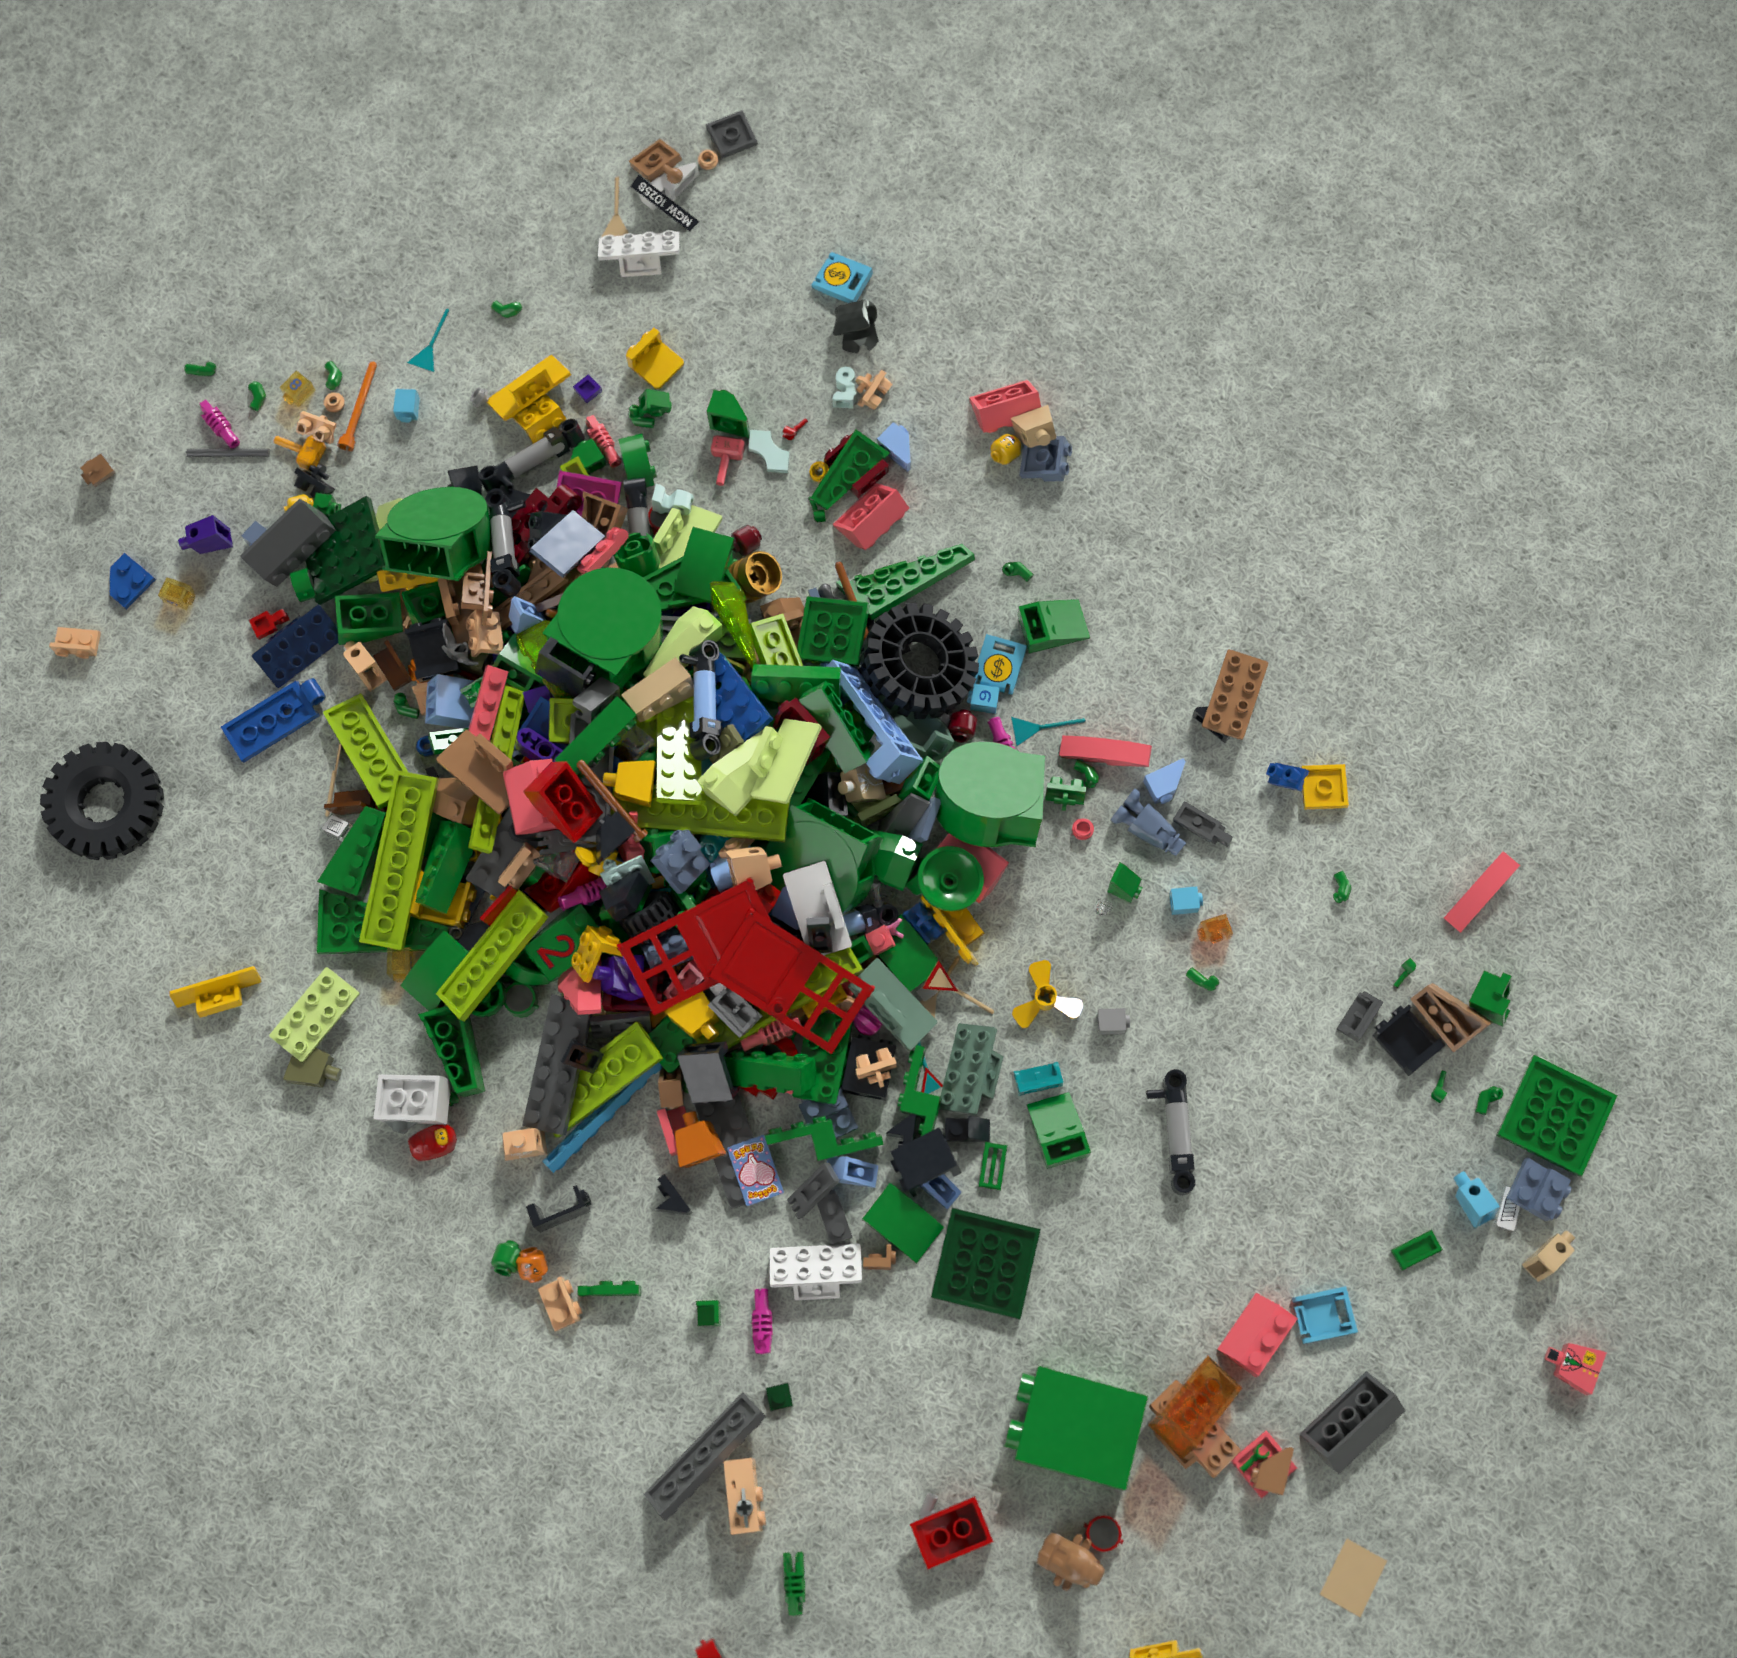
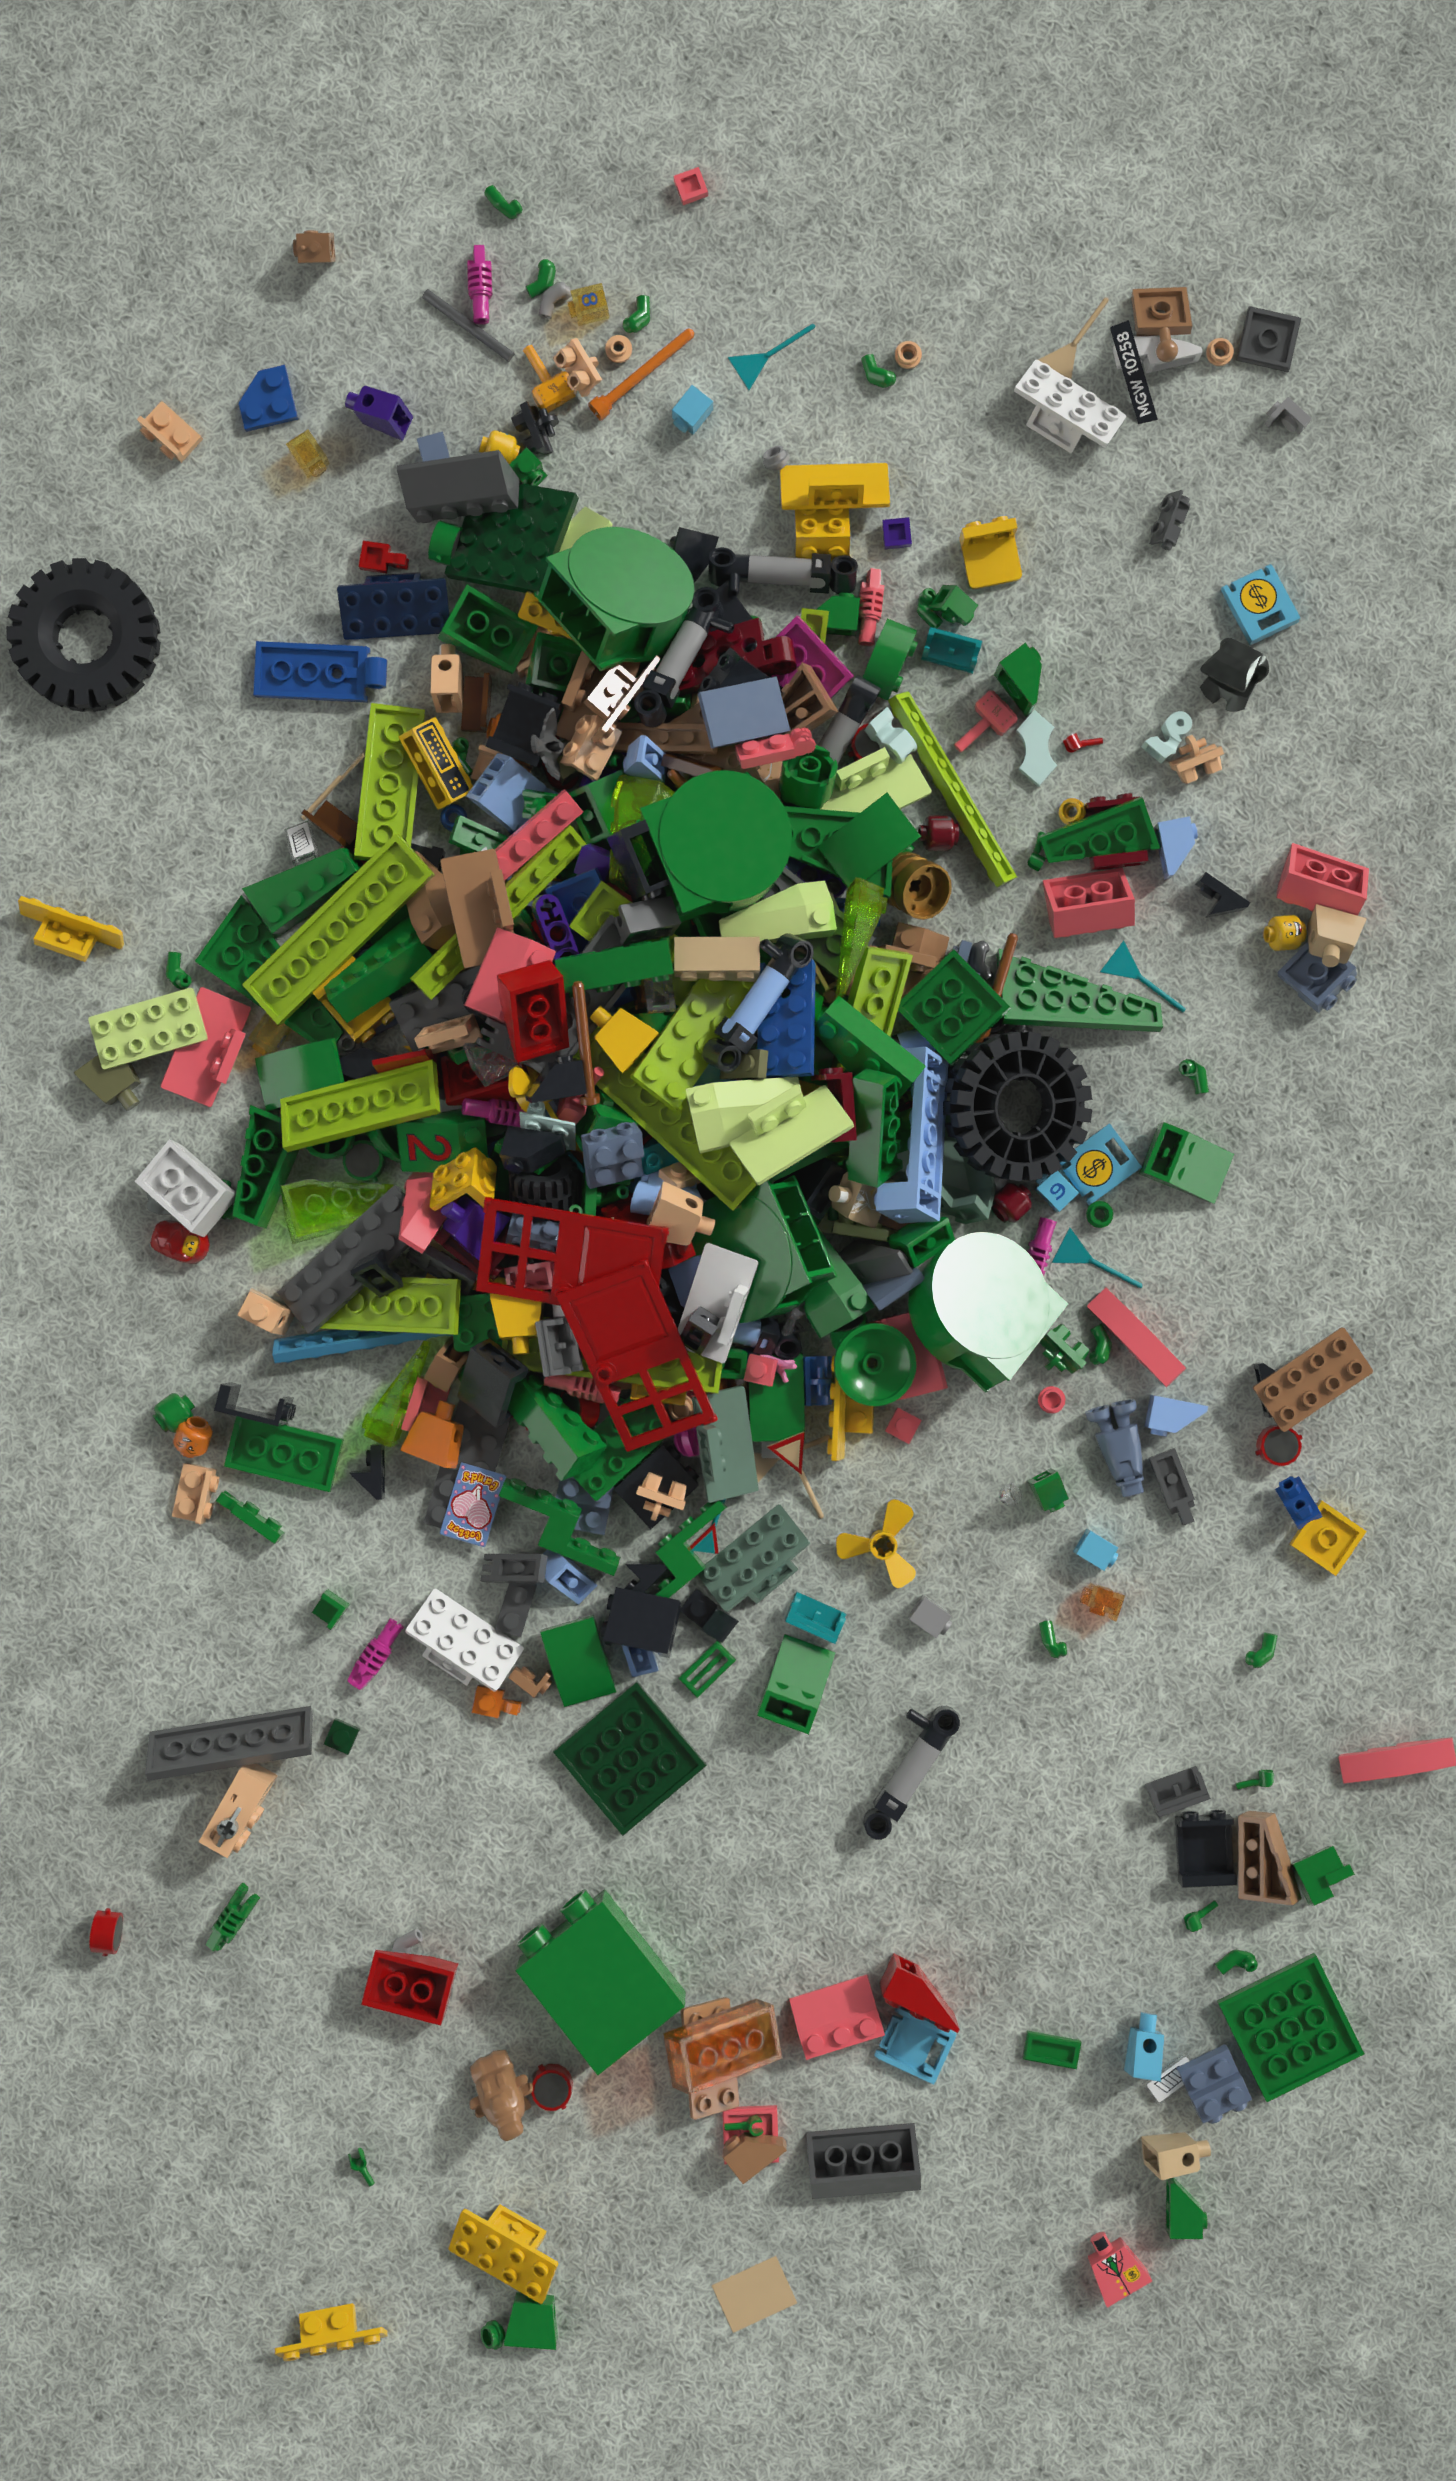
camera: 30 degrees right, 15 degrees up
(269, 400) = (552, 295): none -> light grey arm
(308, 971) = (175, 973): none -> green arm
(313, 283) = (690, 186): none -> coral plate
(368, 1016) = (202, 1067): none -> coral bracket
(391, 717) = (436, 763): none -> yellow brick
(515, 1048) = (326, 1207): none -> clear neon green wedge
(518, 281) = (908, 346): none -> light nougat plate
(601, 1230) = (284, 1453): none -> green plate
(654, 1148) = (388, 1414): none -> clear neon green wedge
(672, 430) = (951, 650): none -> teal hinge
(741, 512) = (952, 789): none -> lime plate
(748, 262) = (1173, 508): none -> dark grey hinge
(777, 163) = (1293, 416): none -> light grey bracket
(864, 1296) = (492, 1703): none -> orange plate
(921, 538) = (1123, 965): none -> teal piece
(955, 454) = (1227, 899): none -> black slope
(1000, 914) = (903, 1425): none -> coral plate
(1023, 688) = (1108, 1214): none -> green plate
(1247, 752) = (1278, 1446): none -> pearl dark grey piece
(1291, 1272) = (909, 1987): none -> red slope
(1589, 1292) = (1183, 2213): none -> green slope

